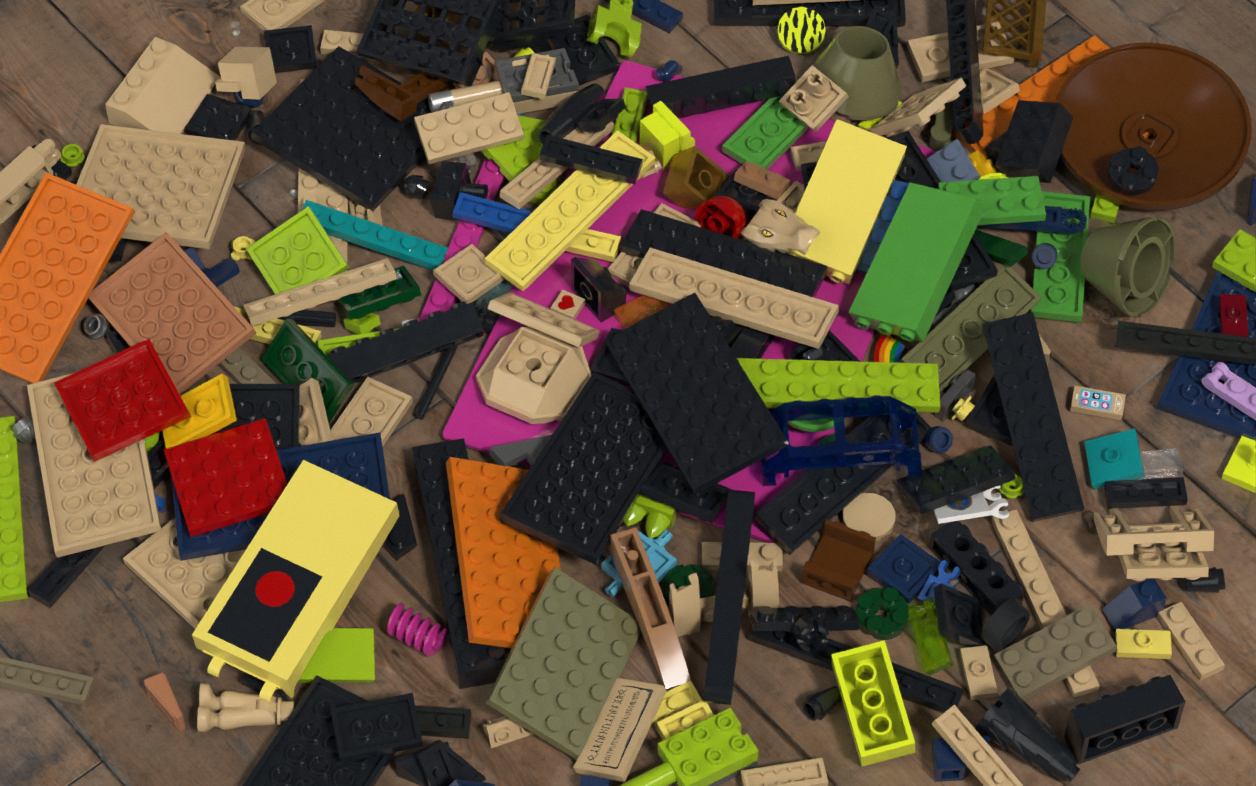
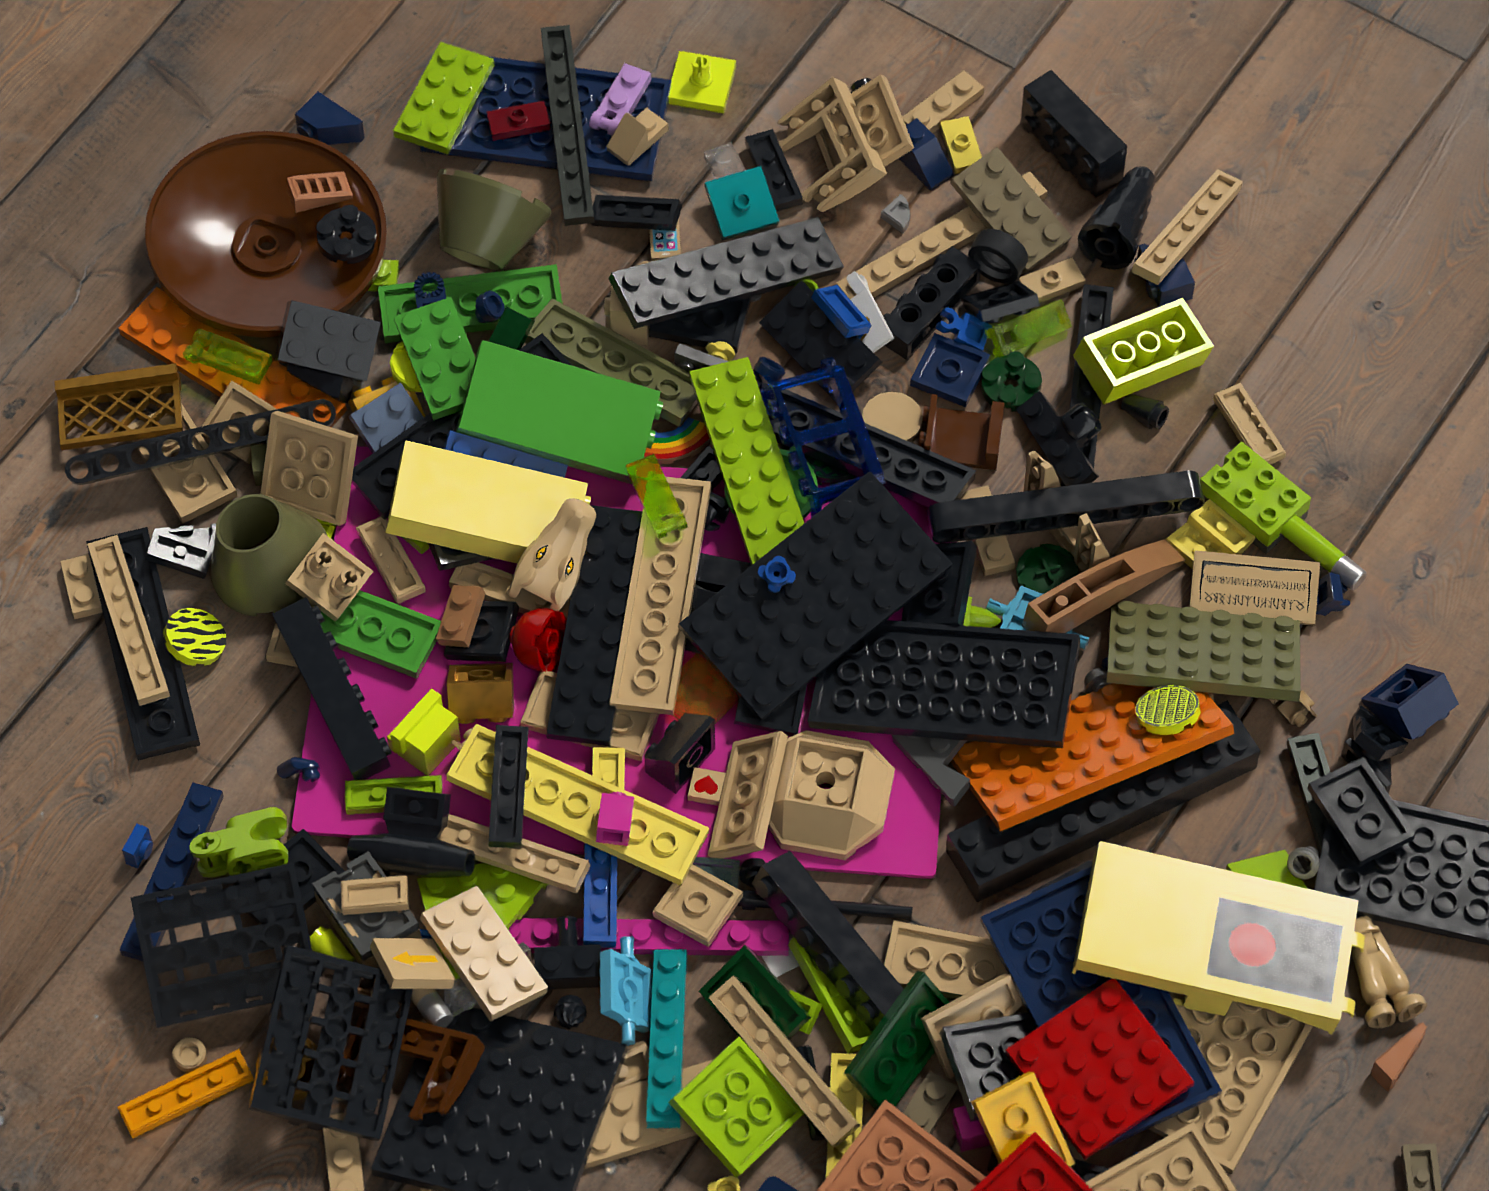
camera: 105 degrees left, 5 degrees up
(352, 679) = (1299, 866): none -> light grey cone
(415, 213) = (626, 990): none -> medium azure plate
(415, 632) = (1210, 821): dark pink piece -> none
(470, 78) = (412, 963): none -> tan tile
(505, 598) = (1167, 709): none -> tile
(542, 218) = (615, 818): none -> dark pink brick
(708, 349) = (779, 565): none -> blue plate
(813, 302) = (656, 495): none -> clear neon green plate
(973, 488) = (841, 311): none -> blue tile
(1043, 83) = (228, 356): none -> clear neon green plate
(1080, 577) = (897, 213): none -> light grey tile
(1120, 379) = (636, 212): none -> black plate
(1176, 143) = (312, 200): none -> nougat slope
(1198, 396) = (636, 135): none -> tan slope

